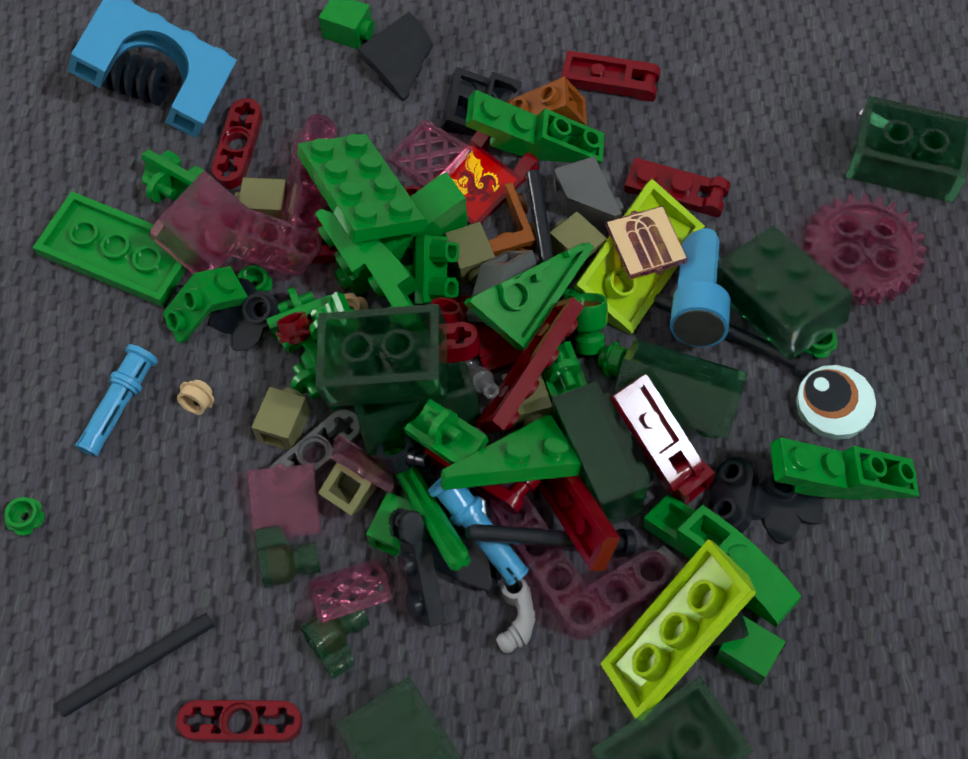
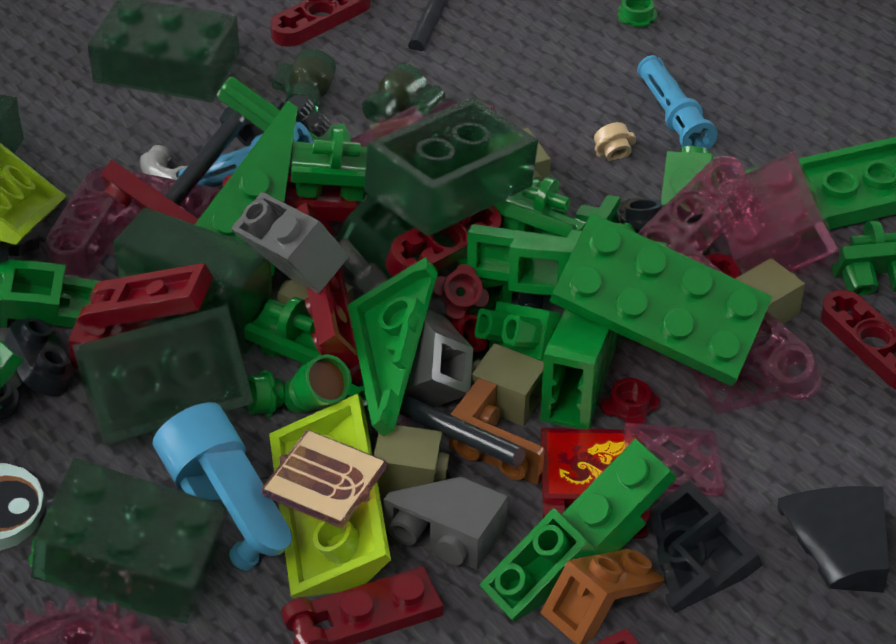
camera: 135 degrees right, 20 degrees down
(294, 328) = (584, 197): dark red plate -> none
(340, 606) = (340, 85): clear pink window -> none
(547, 367) = (291, 241): none -> dark grey slope

